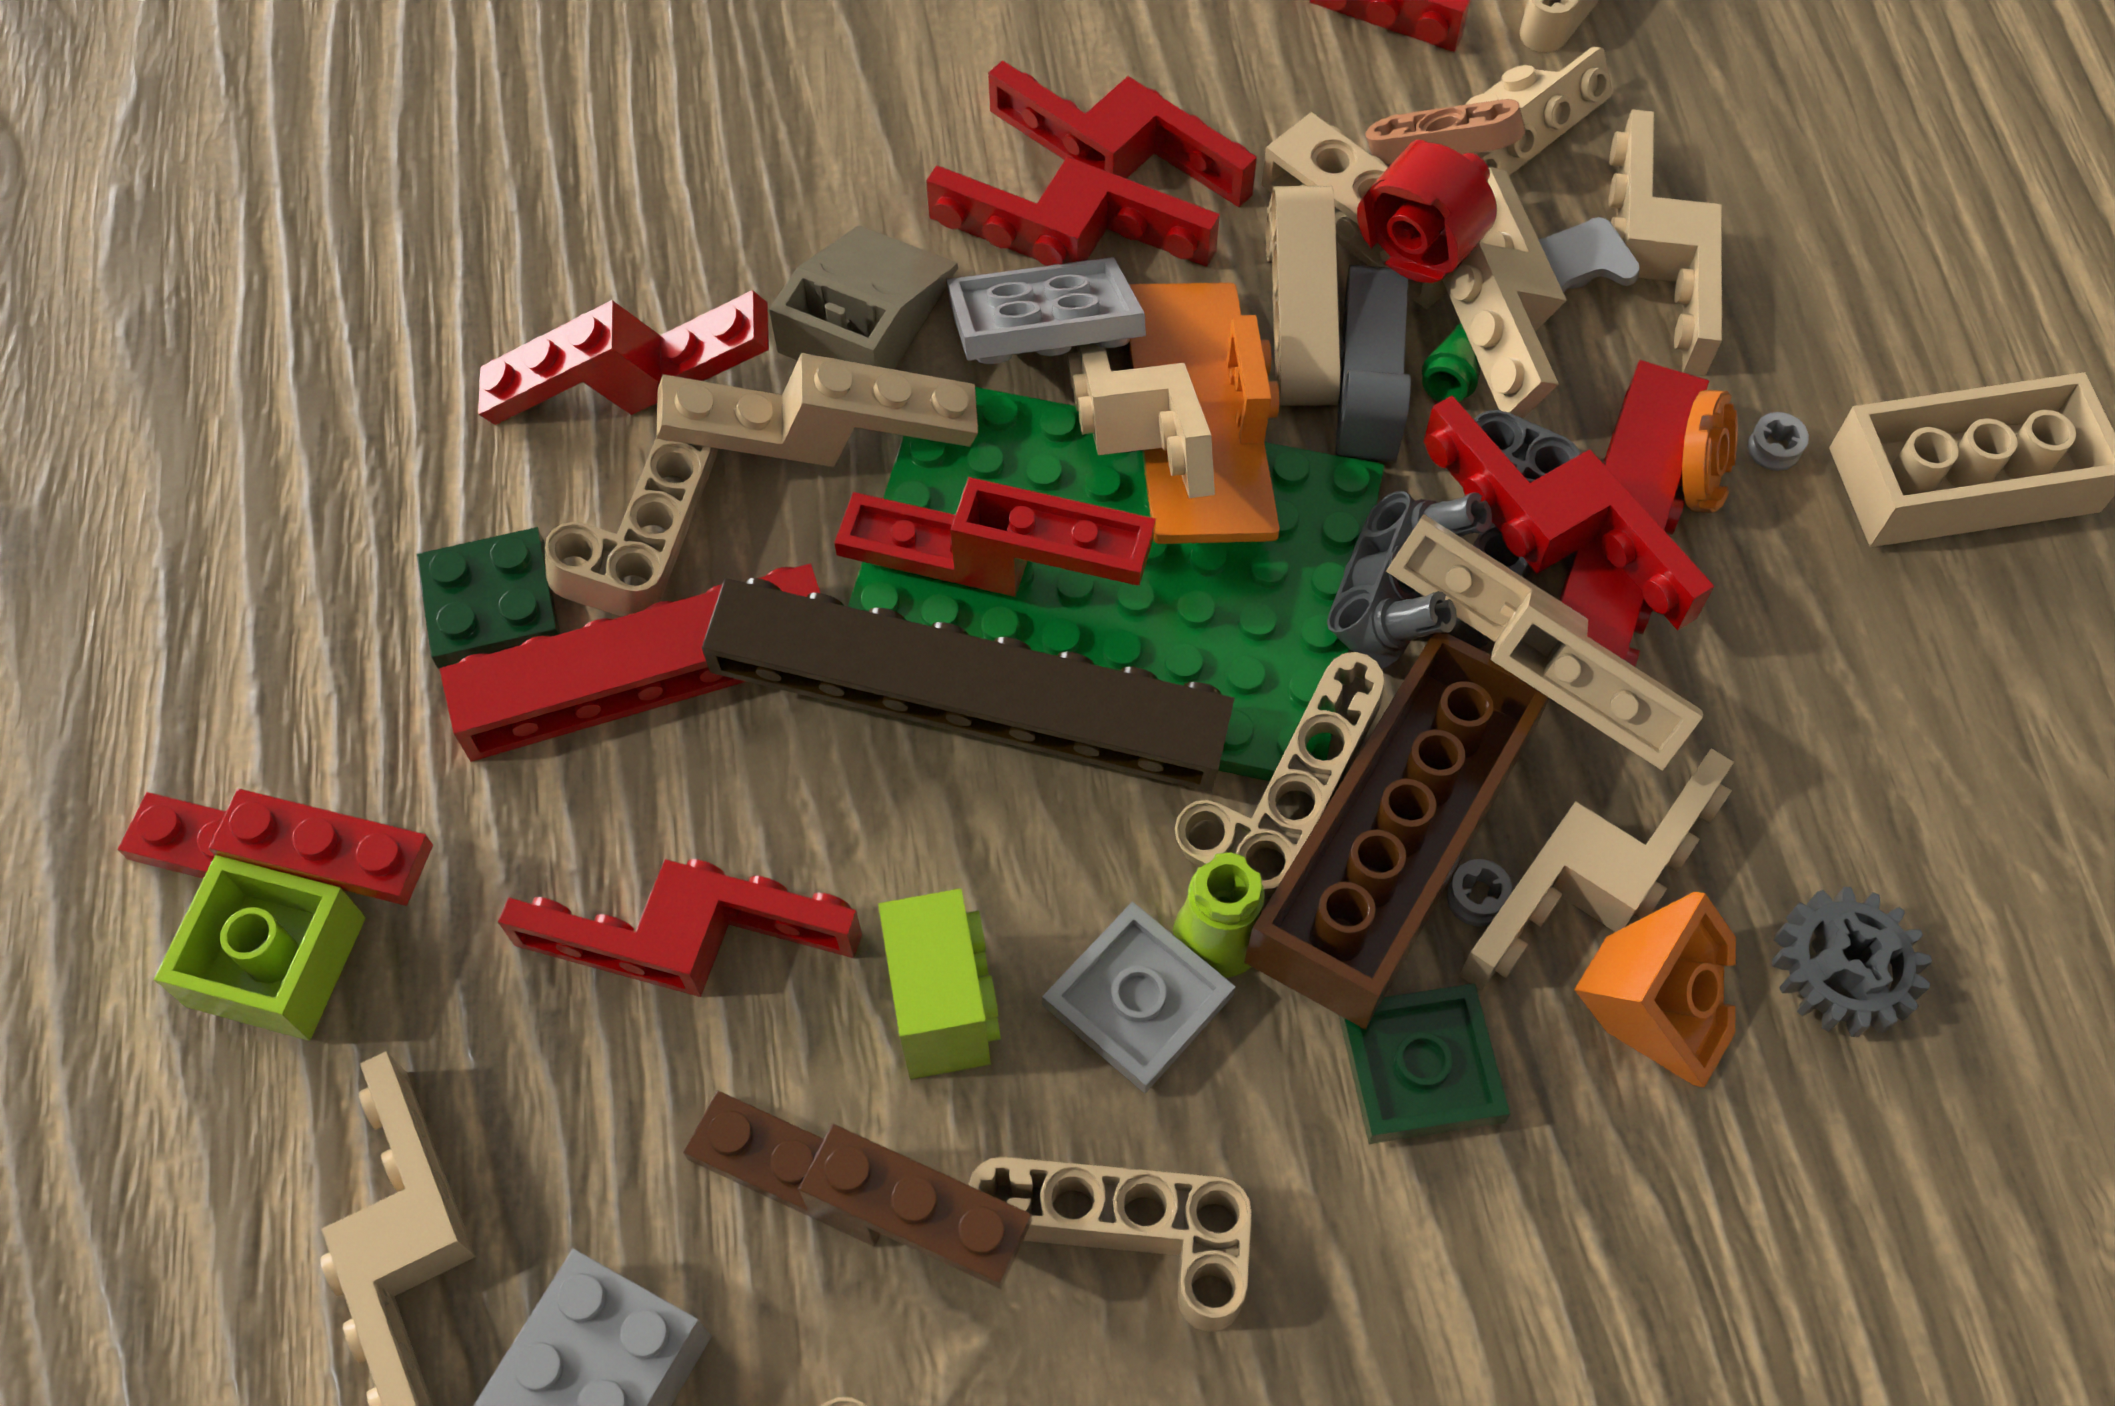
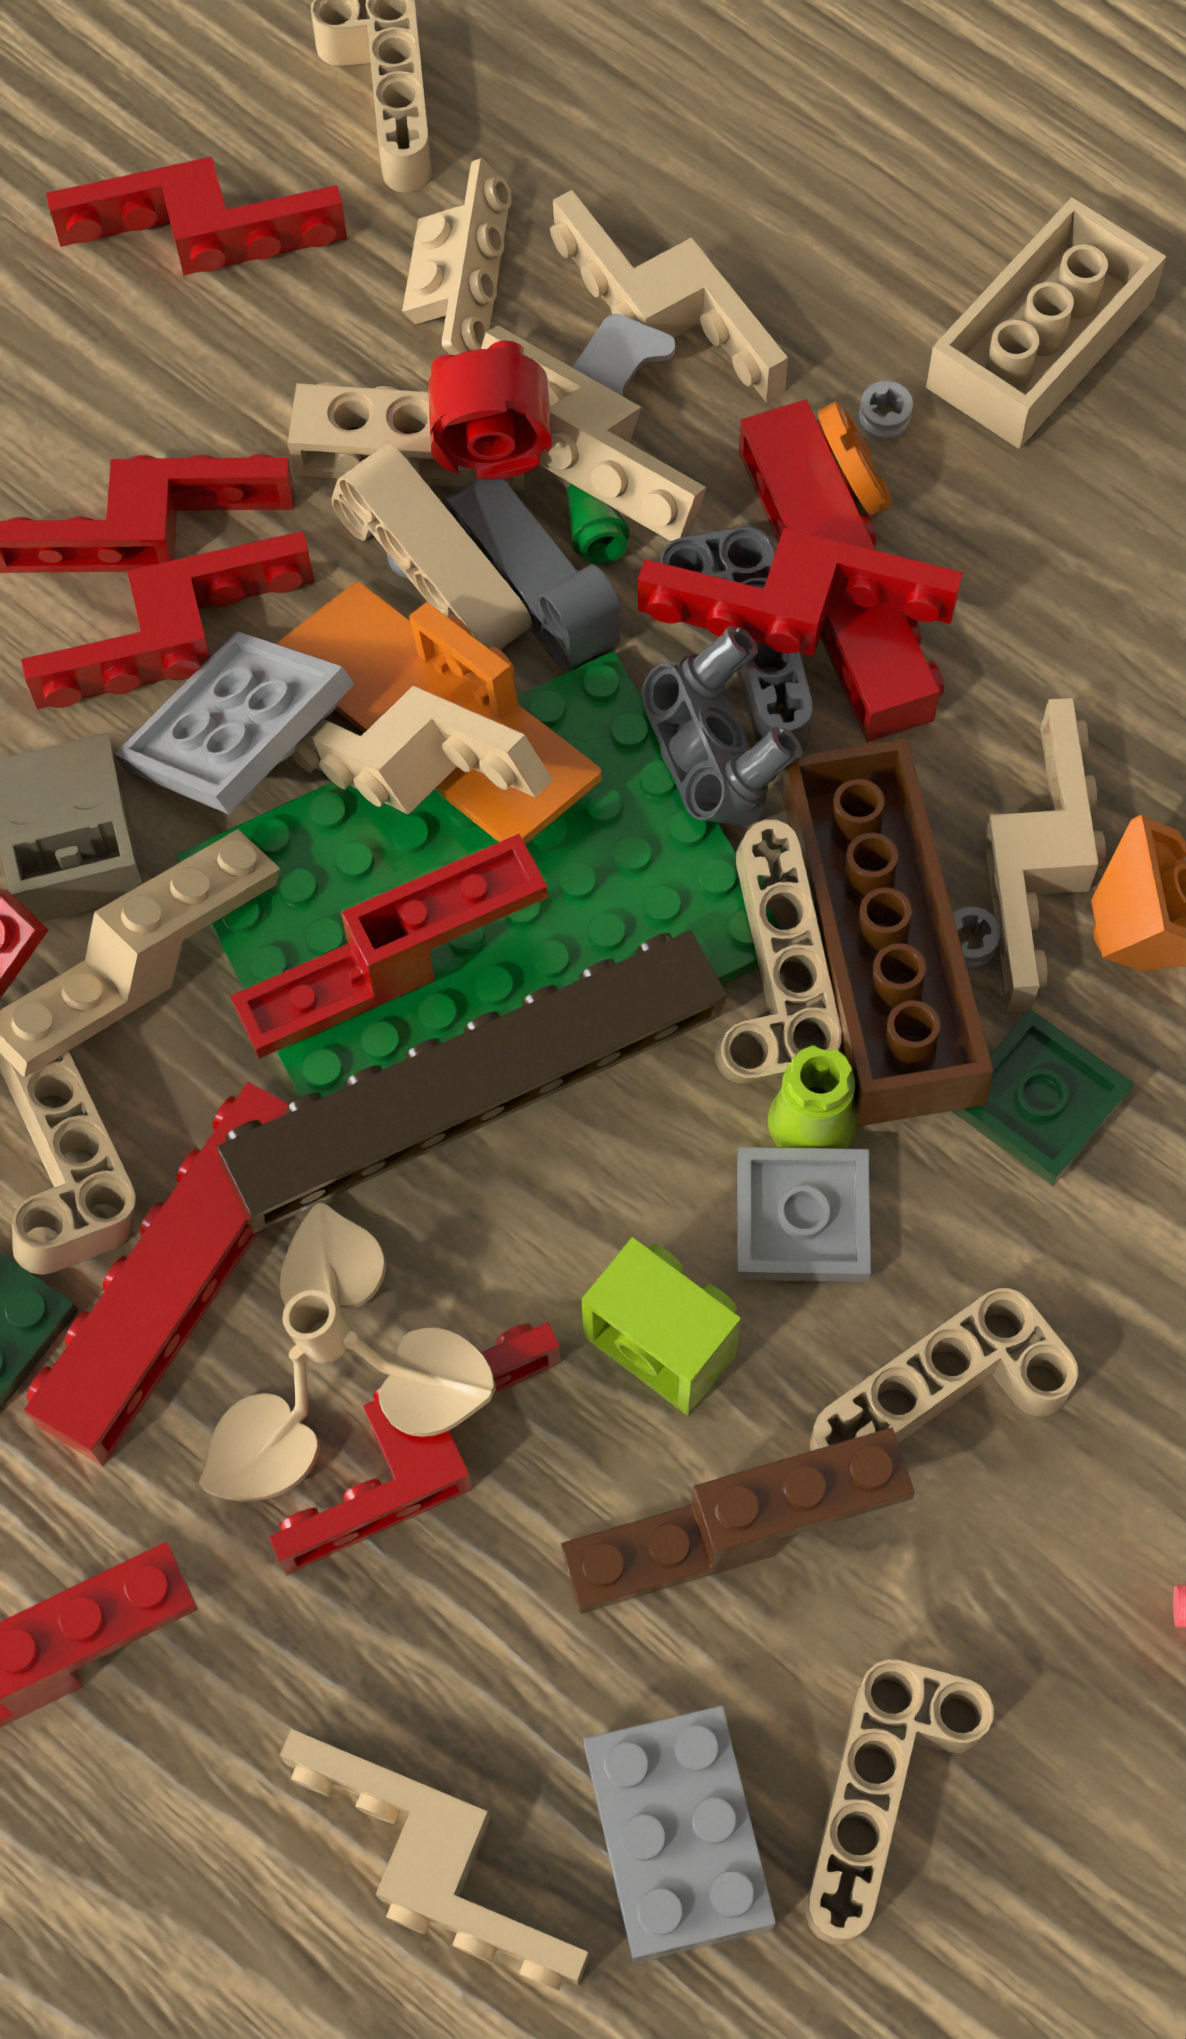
camera: 40 degrees left, 5 degrees up
(261, 947) = (101, 1742): lime brick -> none
(713, 888) = (429, 1389): none -> tan plant
(1461, 128) = (449, 300): nougat beam -> none
(1546, 643) = (876, 709): tan bracket -> none

